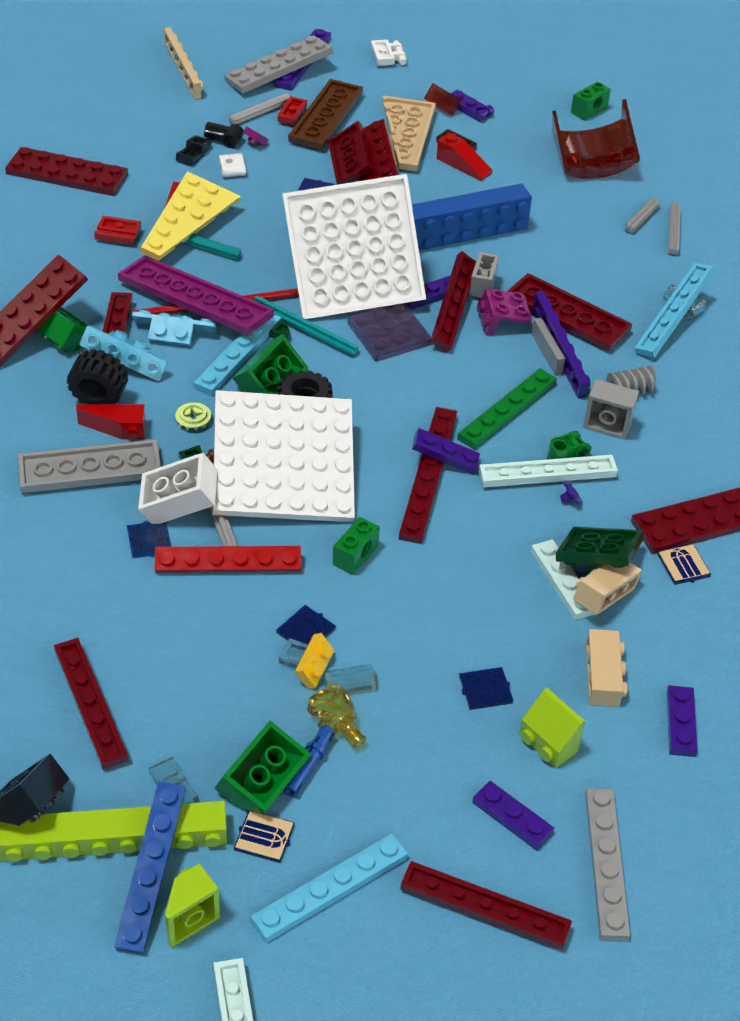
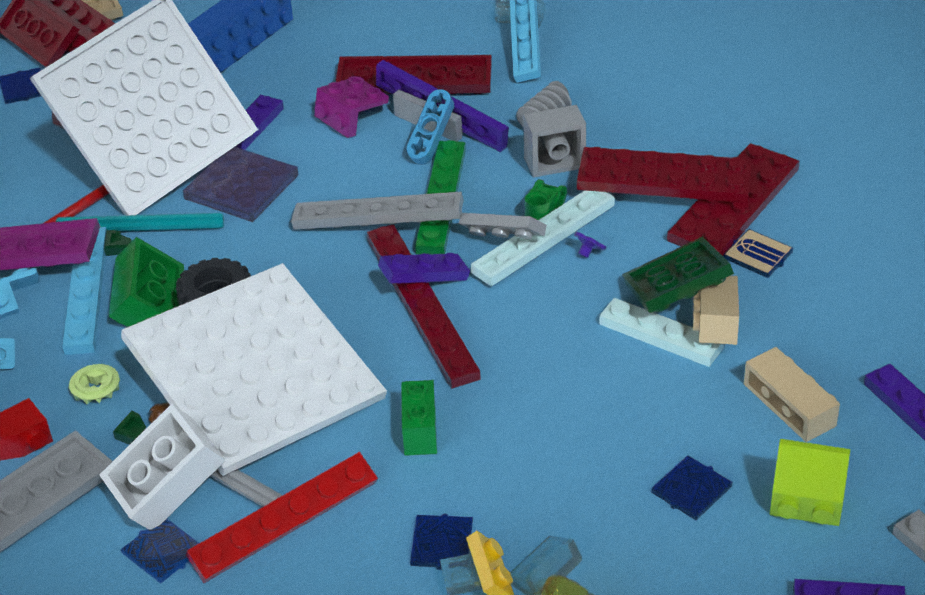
camera: 30 degrees left, 5 degrees down
(452, 396) = (378, 210): none -> light grey plate
(453, 302) = (290, 120): dark red plate -> none
(484, 274) = (298, 78): light grey brick -> none
(519, 450) = (502, 225): none -> light grey plate
(540, 346) = (431, 138): none -> dark azure beam
(666, 474) = (665, 174): none -> dark red plate

